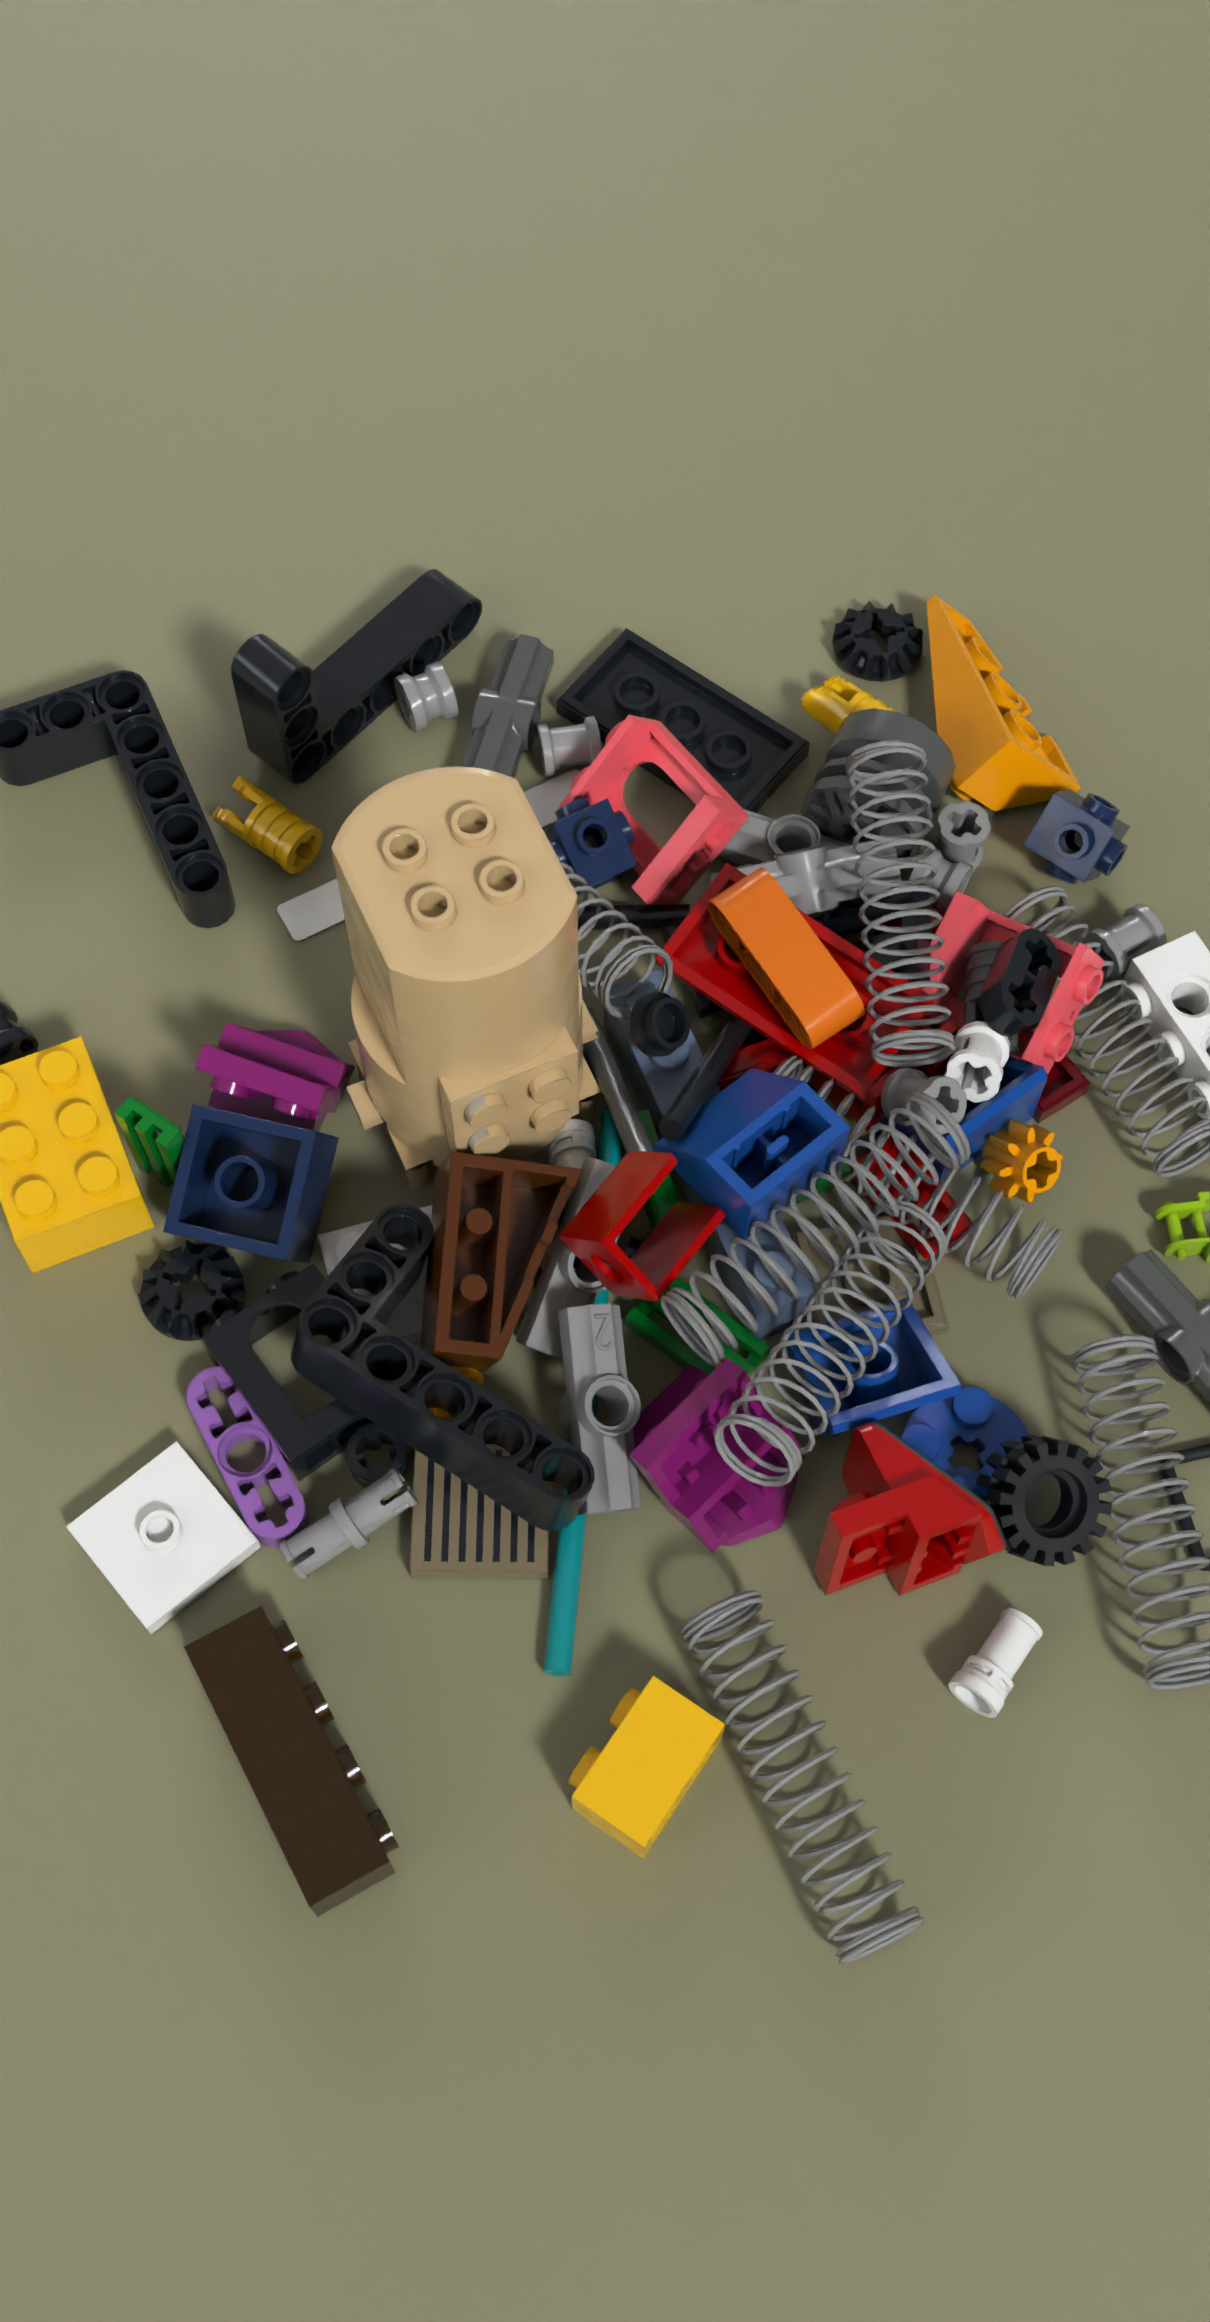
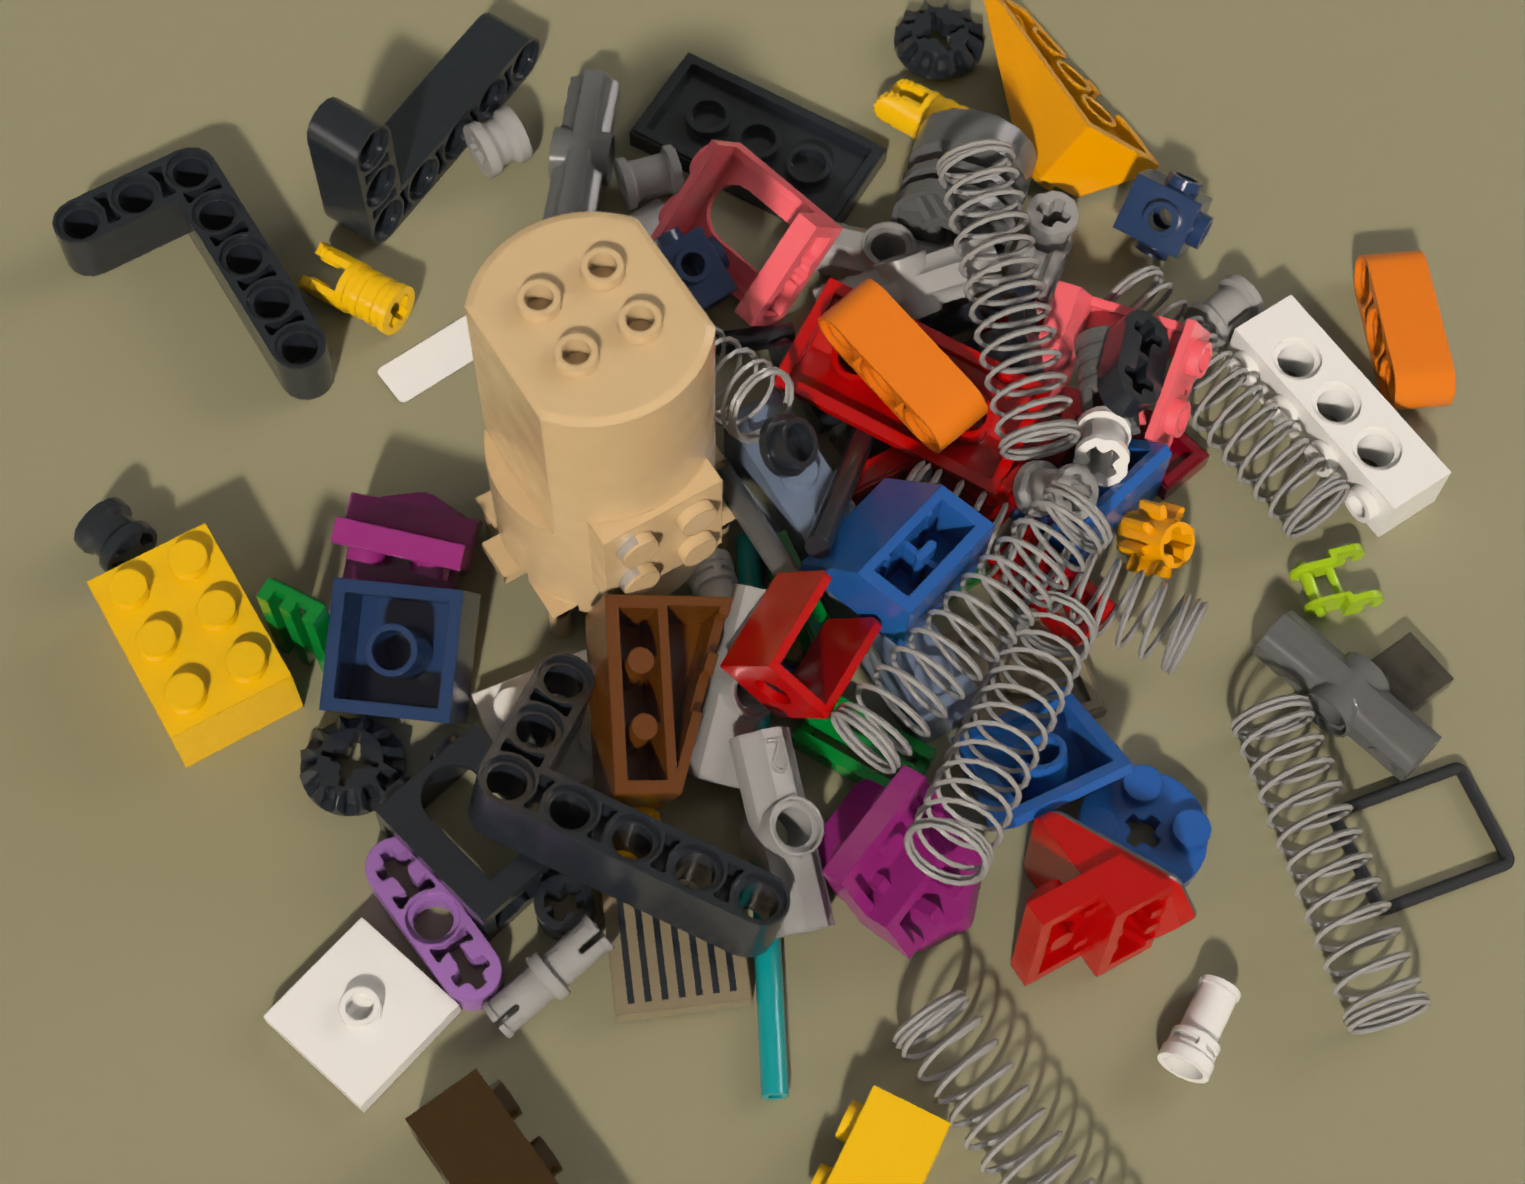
camera: 10 degrees left, 0 degrees up
(1077, 1505) = (1257, 865): black tyre -> none

